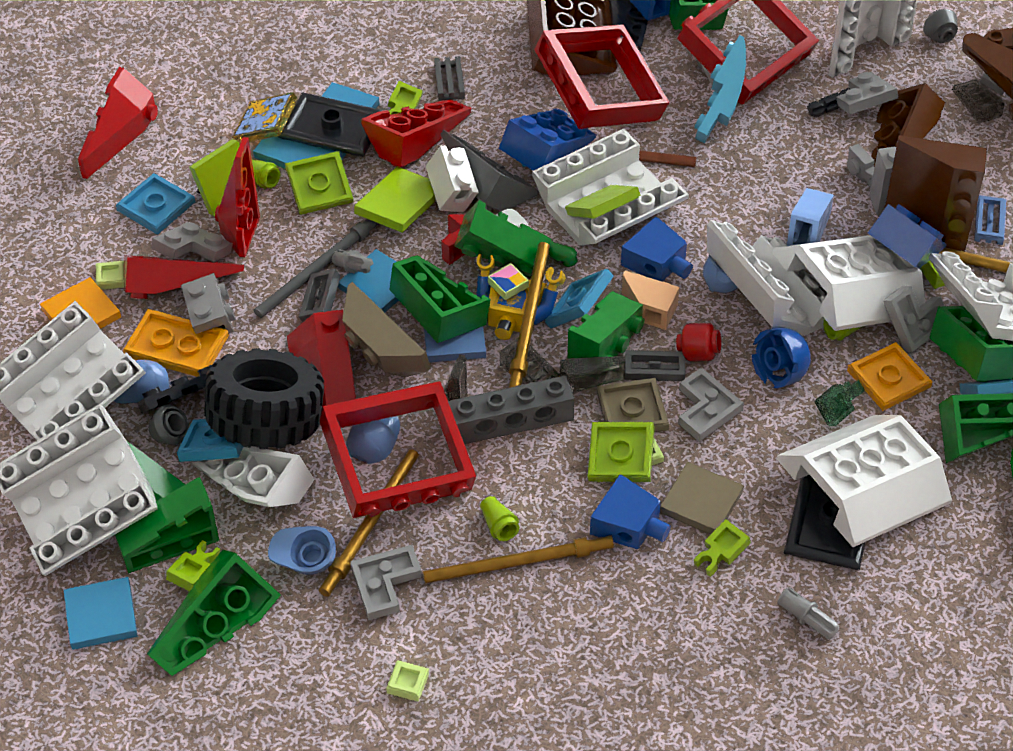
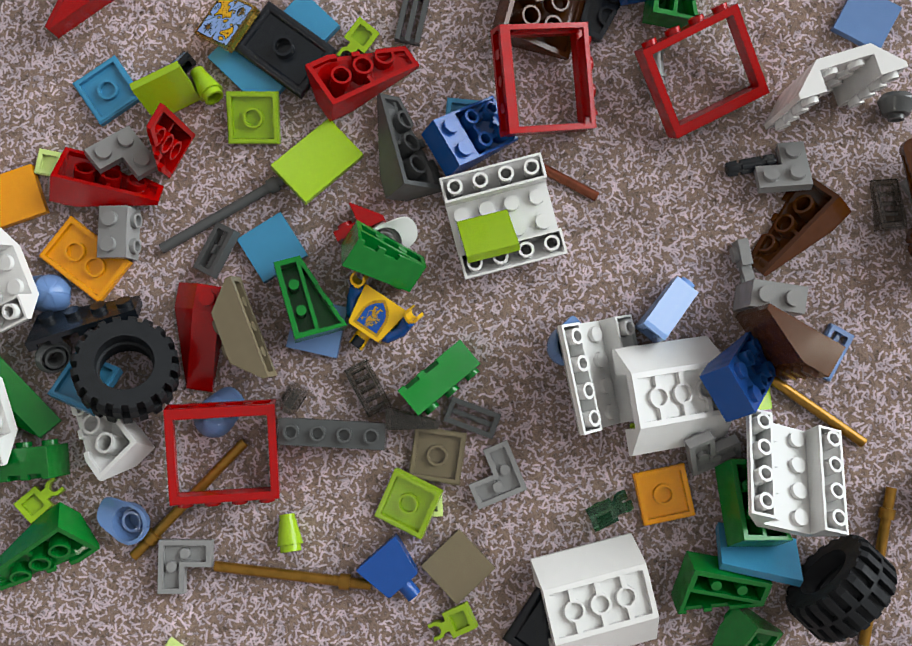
camera: 25 degrees right, 35 degrees up
(352, 261) = (252, 226): light grey axle -> none
(451, 179) = (367, 158): white brick -> none
(508, 281) = (372, 303): tile -> none
(519, 365) = (353, 393): pearl gold bar -> none
(563, 253) = (435, 268): green arm -> none
(579, 298) = (430, 336): dark azure tile -> none
(656, 252) = (519, 299): blue torso -> none
(657, 298) = (494, 352): light nougat slope -> none
(699, 342) = (516, 411): red head -> none
(727, 88) = (659, 128): medium azure slope -> none
(778, 350) = (580, 455): blue cylinder -> none

